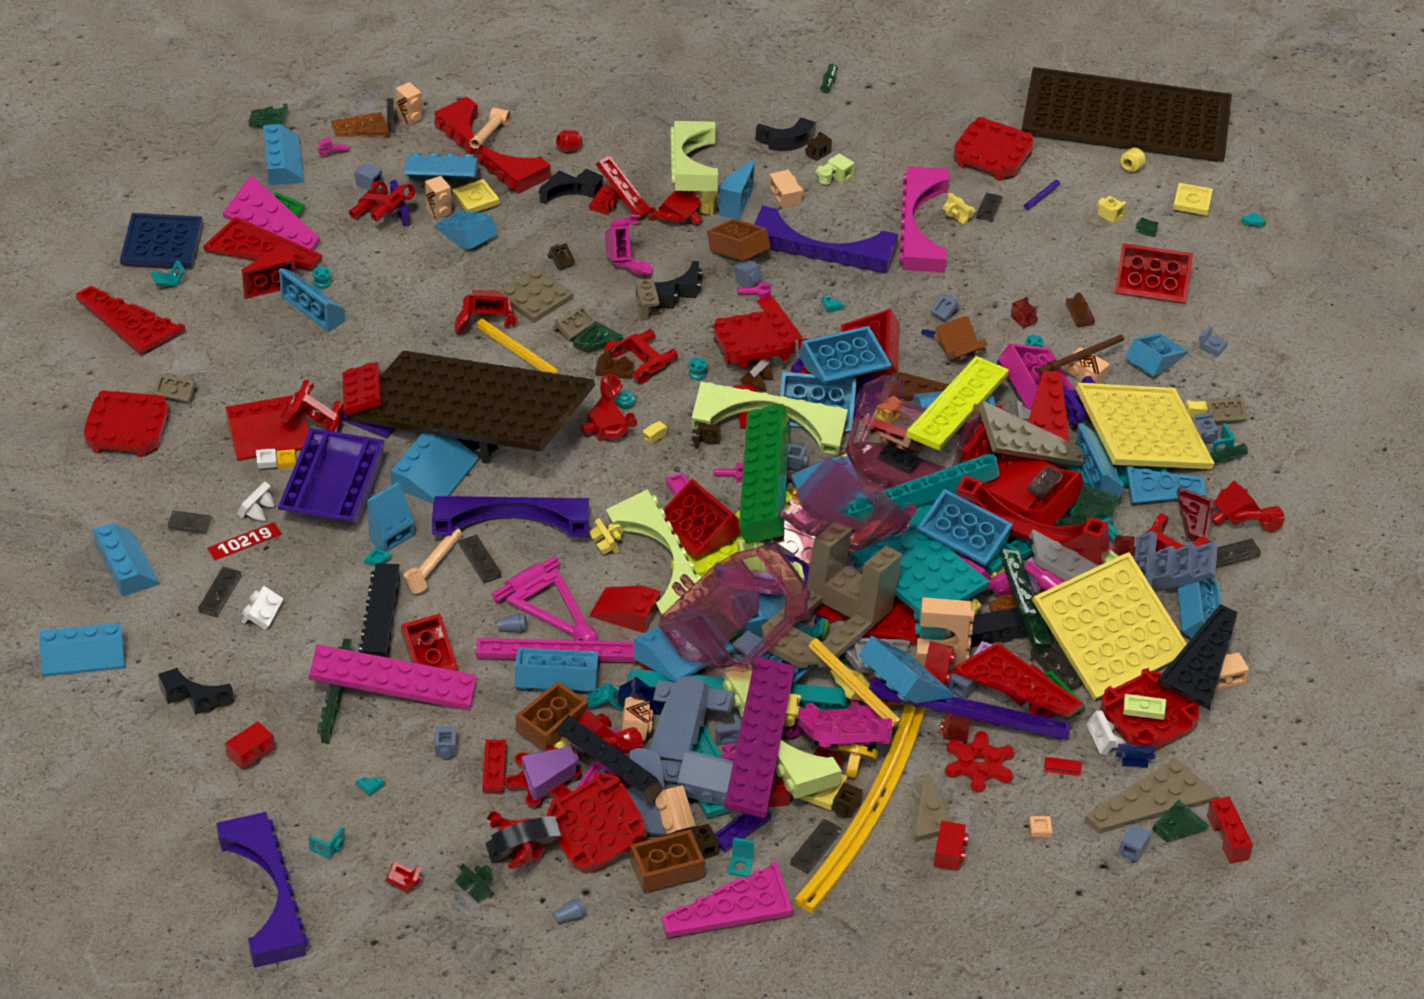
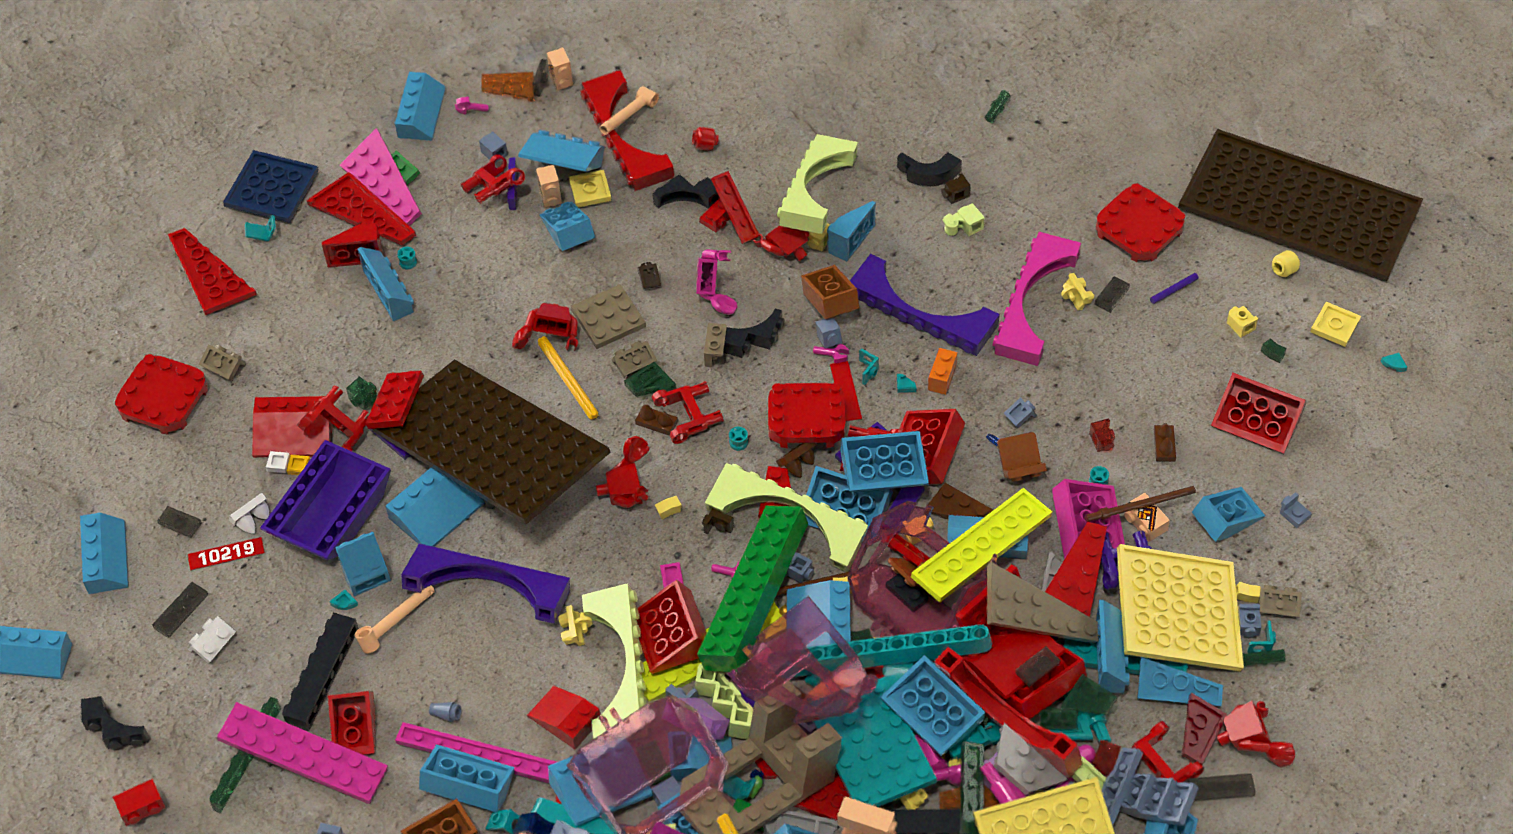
camera: 20 degrees right, 10 degrees up
(268, 116) = (423, 60): clear green wing -> none
(327, 389) = (362, 393): none -> clear green brick
(480, 559) = (442, 624): clear smoke plate -> none
(534, 580) = (478, 666): dark pink piece -> none
(625, 399) = (653, 461): teal plate -> none
(785, 188) = (904, 234): light nougat brick -> none
(798, 295) = (872, 368): none -> teal bracket
(863, 287) = (942, 371): none -> orange brick

